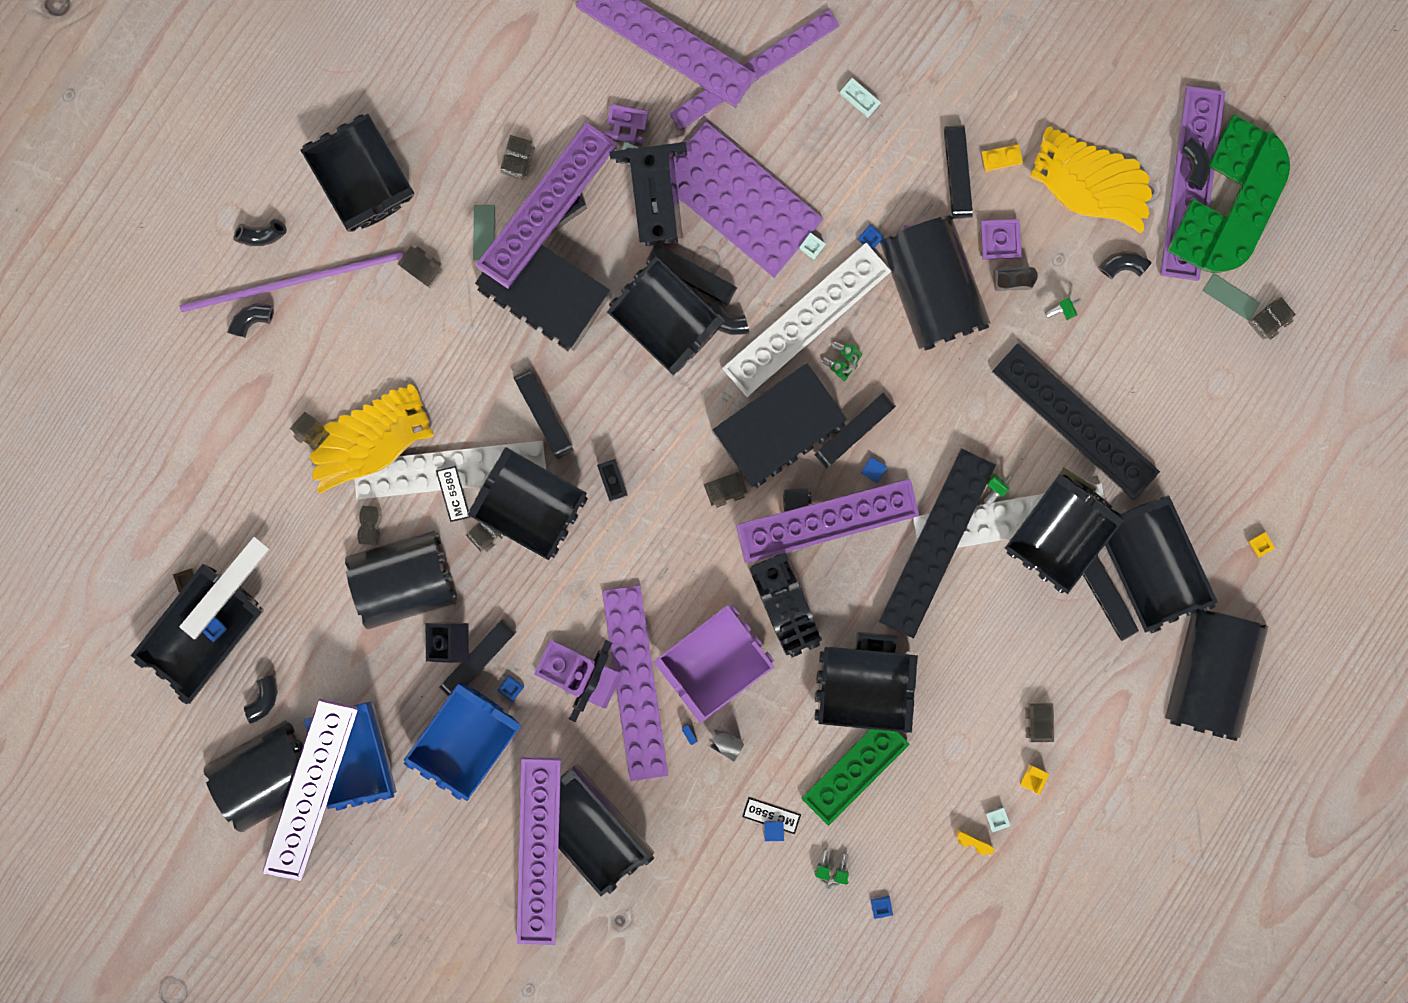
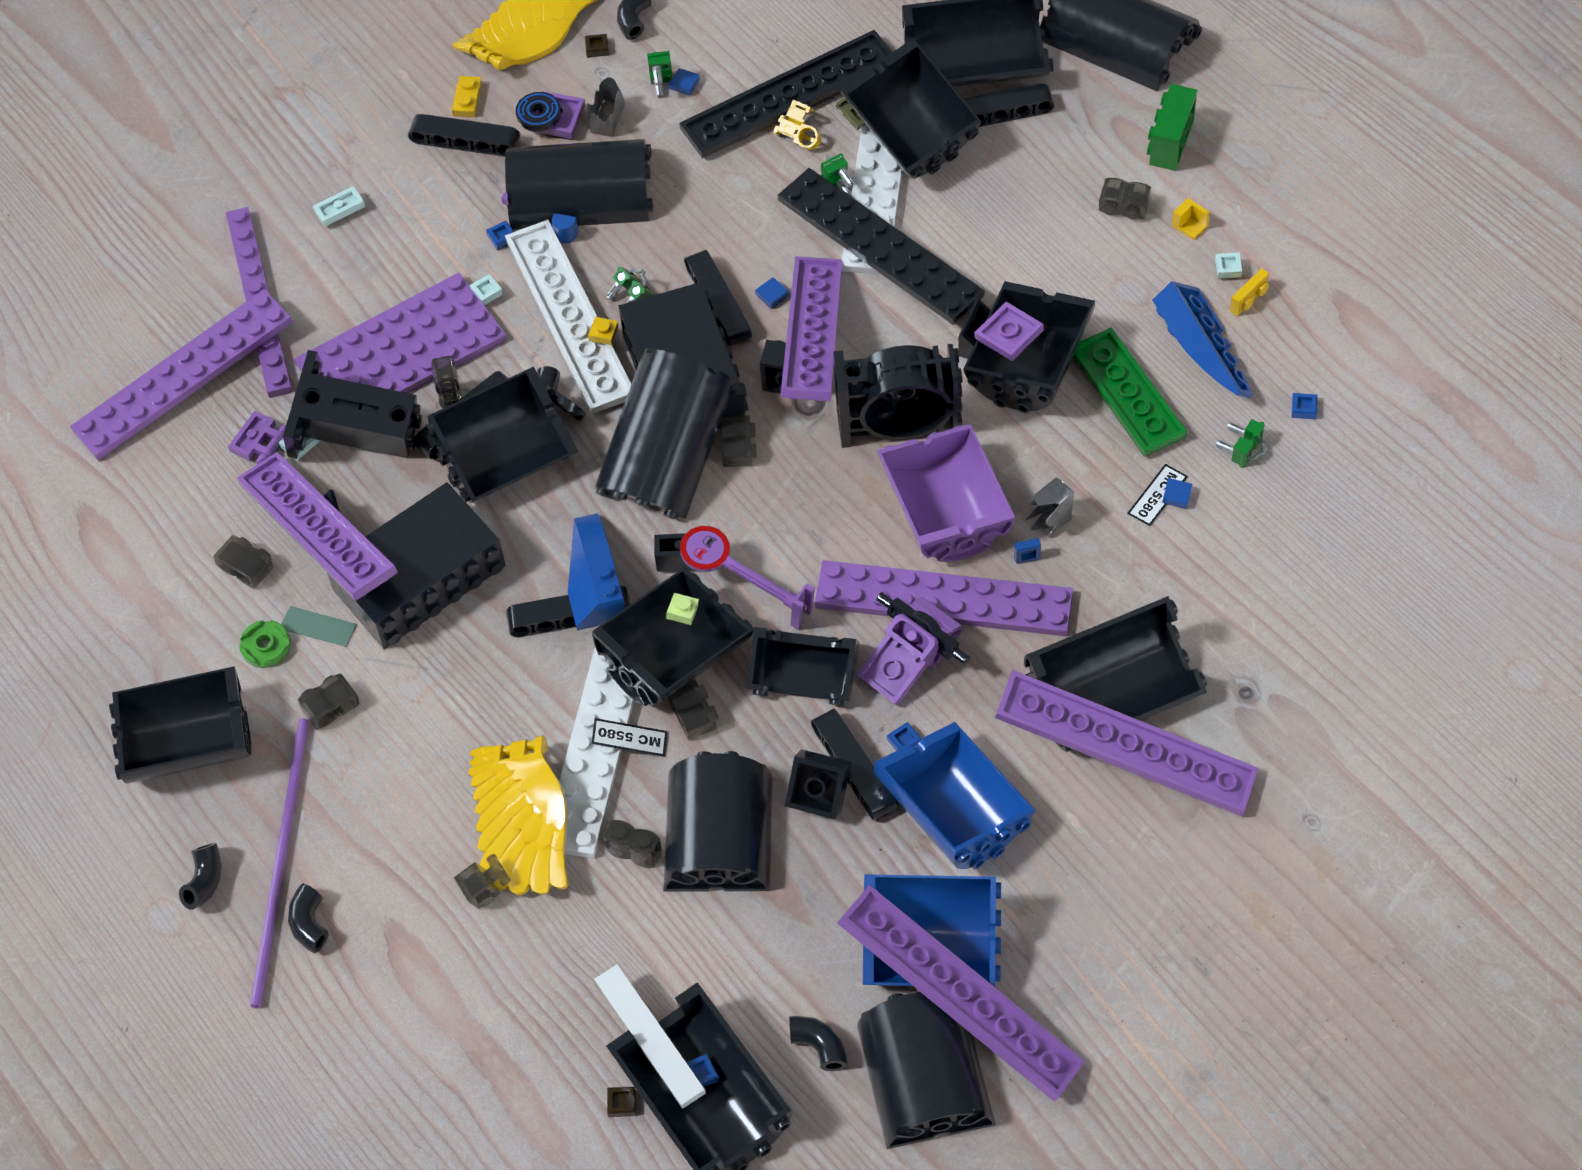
camera: 70 degrees left, 30 degrees down
(467, 203) = (267, 656): none -> bright green tile
(547, 504) = (682, 608): none -> yellowish green plate
(548, 599) = (802, 665): none -> black windscreen
(569, 423) = (592, 575): none -> blue wedge
(611, 502) = (709, 549): none -> medium lavender piece
(700, 435) = (665, 432): none -> black cylinder
(709, 251) = (446, 380): none -> clear smoke brick
(719, 348) = (565, 404): none -> black tile
(794, 353) = (603, 331): none -> yellow plate
(864, 674) = (1009, 331): none -> medium lavender plate
(887, 286) = (565, 227): none -> blue brick
(924, 811) = (1199, 333): none -> blue wedge
(983, 225) = (538, 101): none -> black tile
(1042, 436) = (794, 122): none -> yellow piece
(1066, 331) = (684, 81): none -> blue tile
(1084, 245) = (596, 45): none -> dark brown tile
(1119, 744) = (1172, 126): none -> green brick

